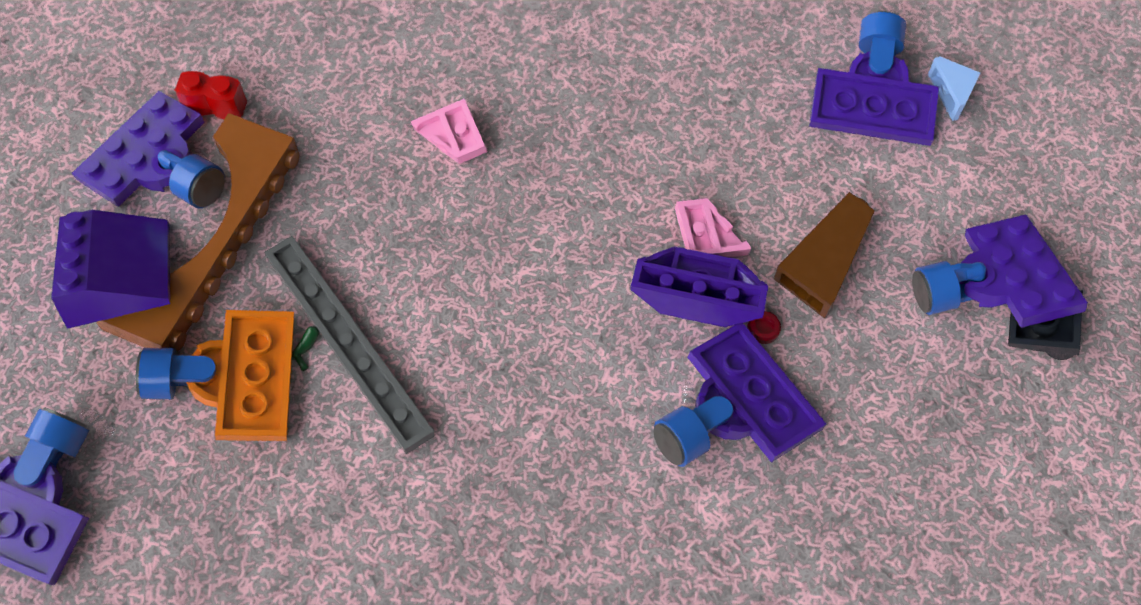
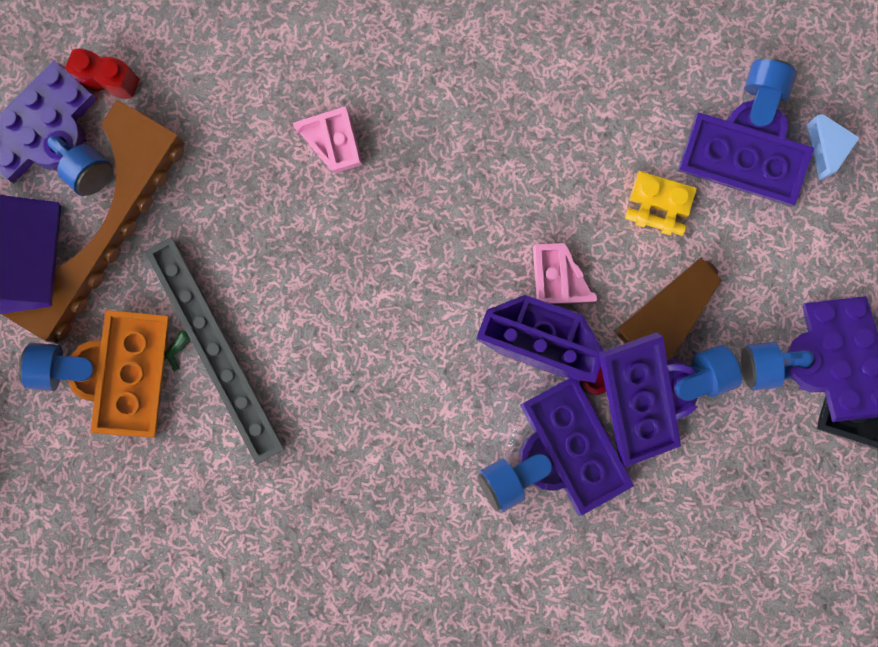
camera: 10 degrees right, 20 degrees up
(798, 148) = (662, 195): none -> yellow plate
(830, 322) = (653, 393): none -> dark purple plate

